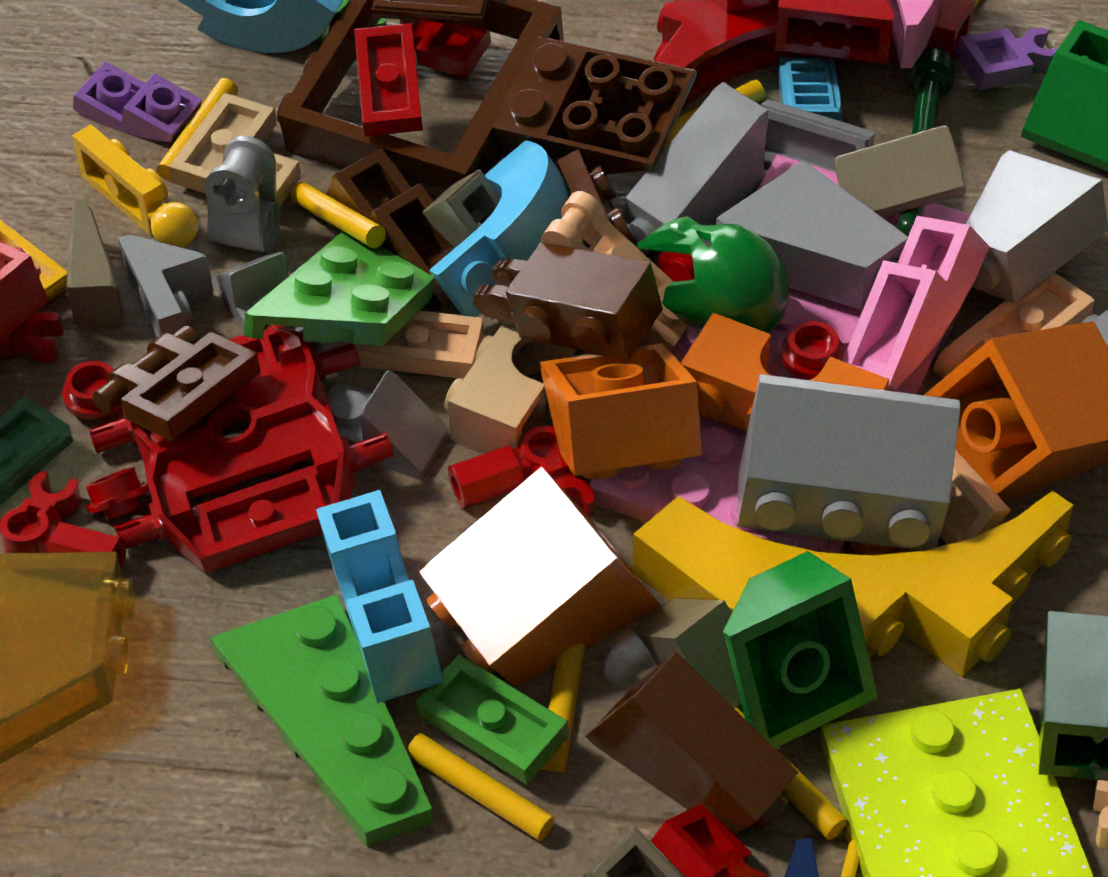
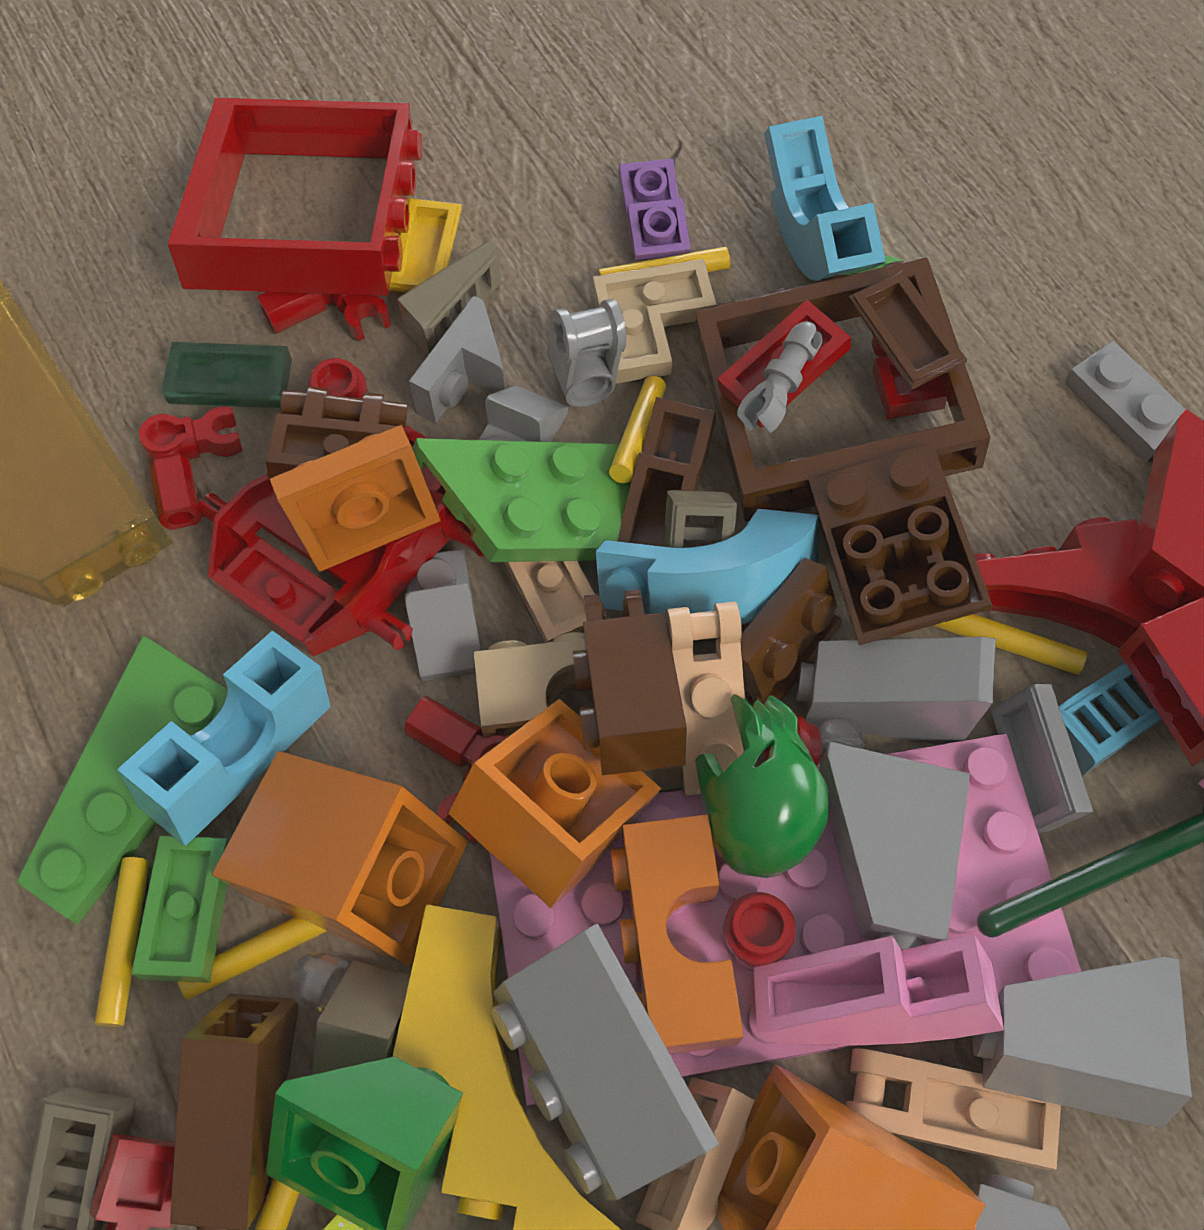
camera: 55 degrees right, 15 degrees up
(116, 493) = (236, 469): red plate -> none
(133, 189) = (553, 272): yellow plate -> none
(276, 363) = (356, 498): none -> orange plate
(407, 76) = (782, 377): none -> light grey piece
(903, 172) = (1038, 878): dark tan slope -> none

